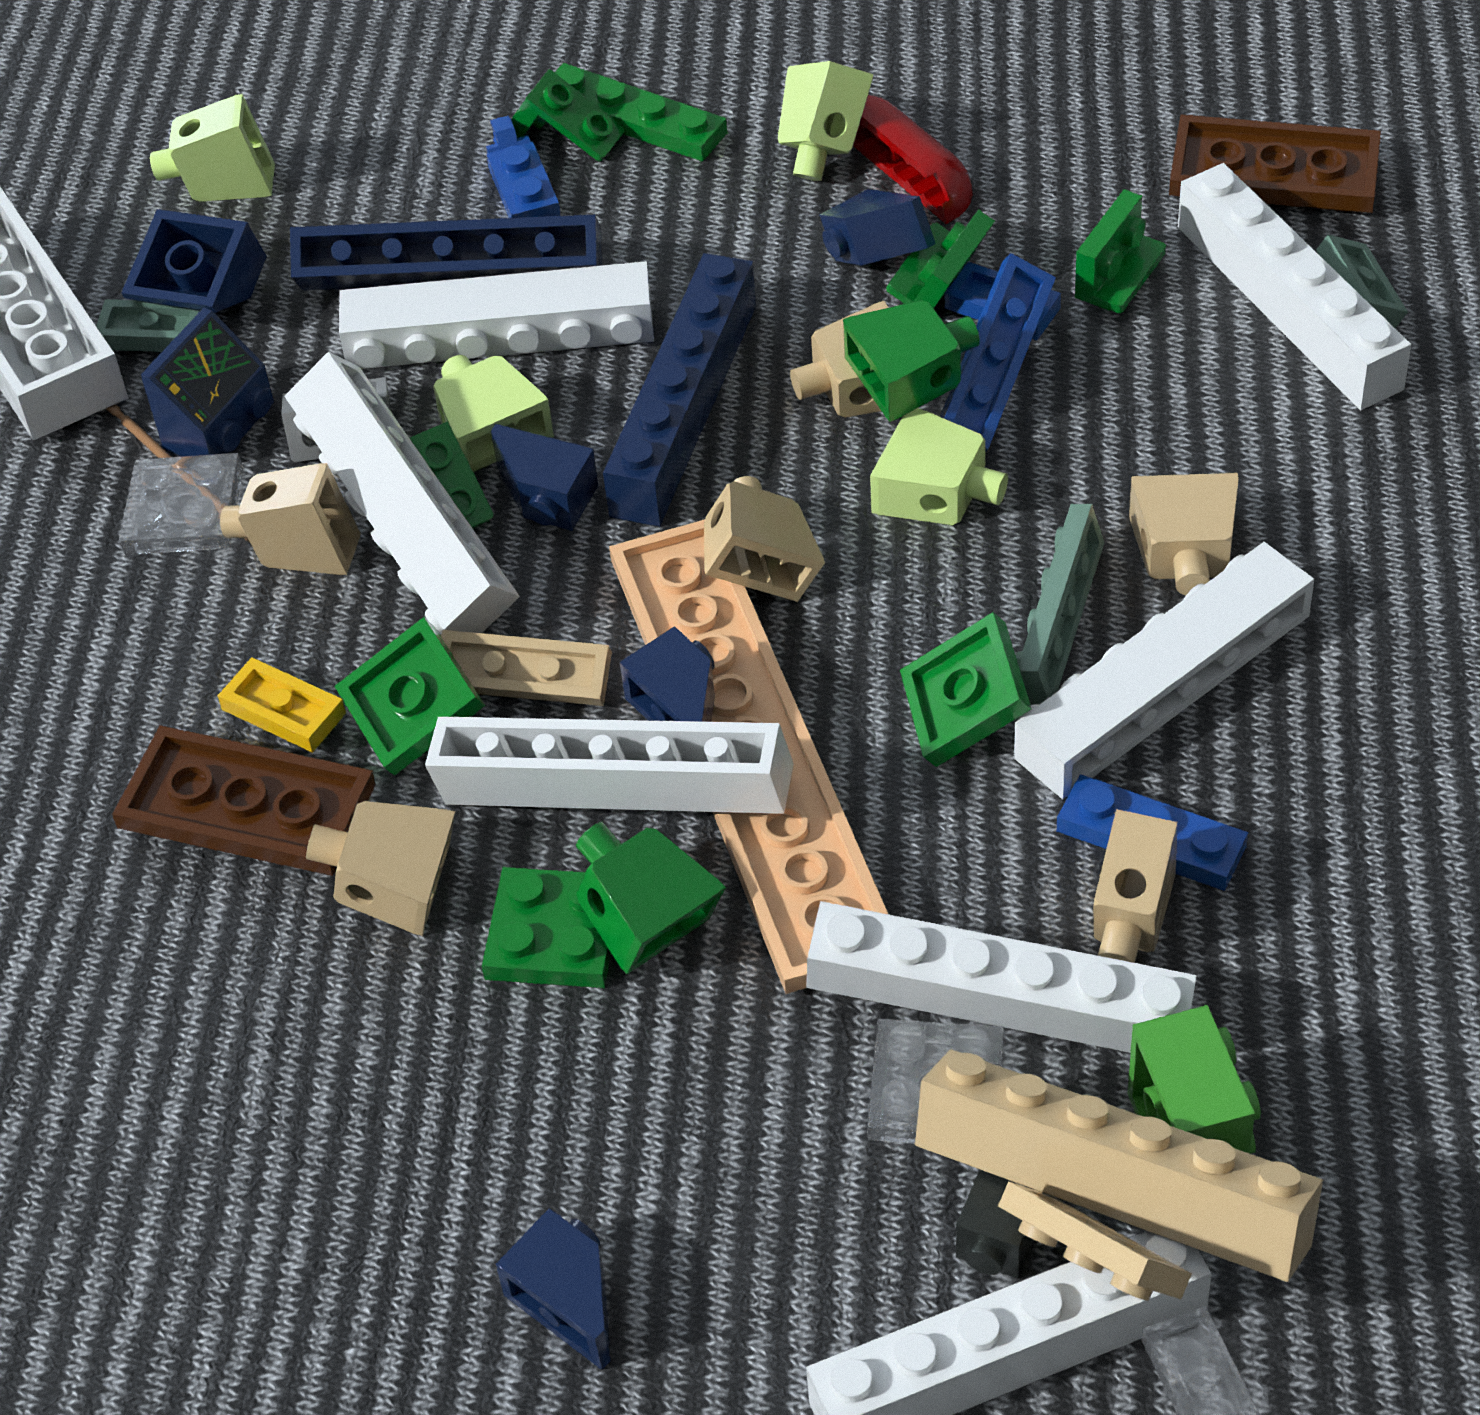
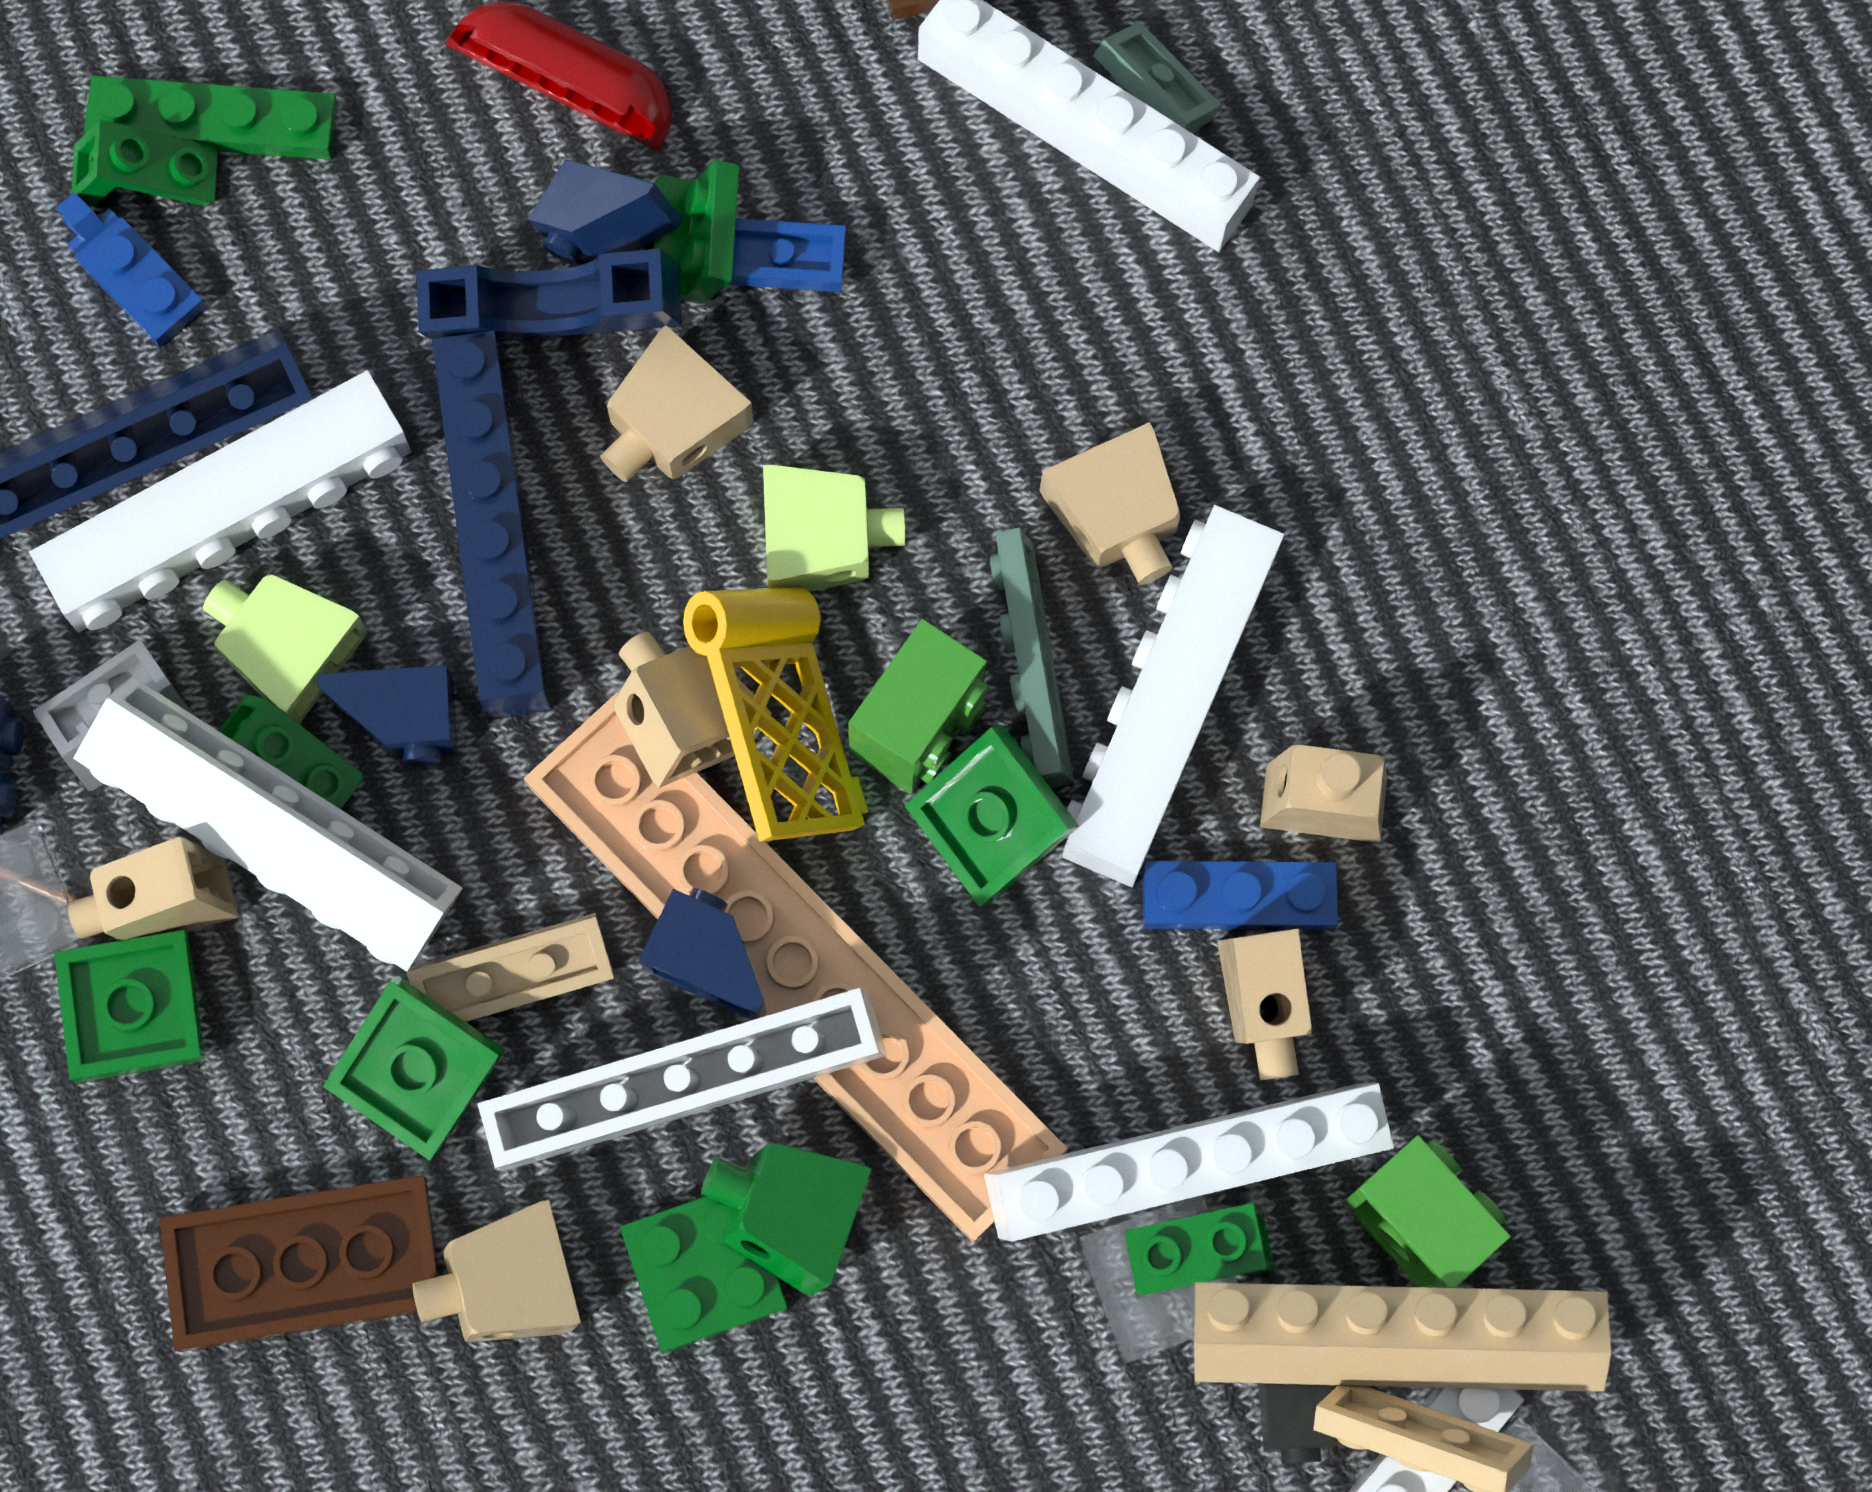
camera: 35 degrees left, 25 degrees up
(229, 592) = (129, 1006): none -> green plate
(282, 704) = (272, 1127): yellow plate -> none
(821, 113) = (458, 66): yellowish green torso -> none
(845, 508) = (774, 630): none -> yellow piece
(861, 269) = (598, 297): none -> dark blue arch
(907, 354) = (740, 410): green torso -> none
(940, 585) = (918, 708): none -> bright green brick
(998, 1042) = (1200, 1249): none -> green bracket
(1004, 336) = (819, 347): blue plate -> none
(1116, 256) = (888, 151): green bracket -> none
(1266, 772) = (1325, 793): none -> tan torso

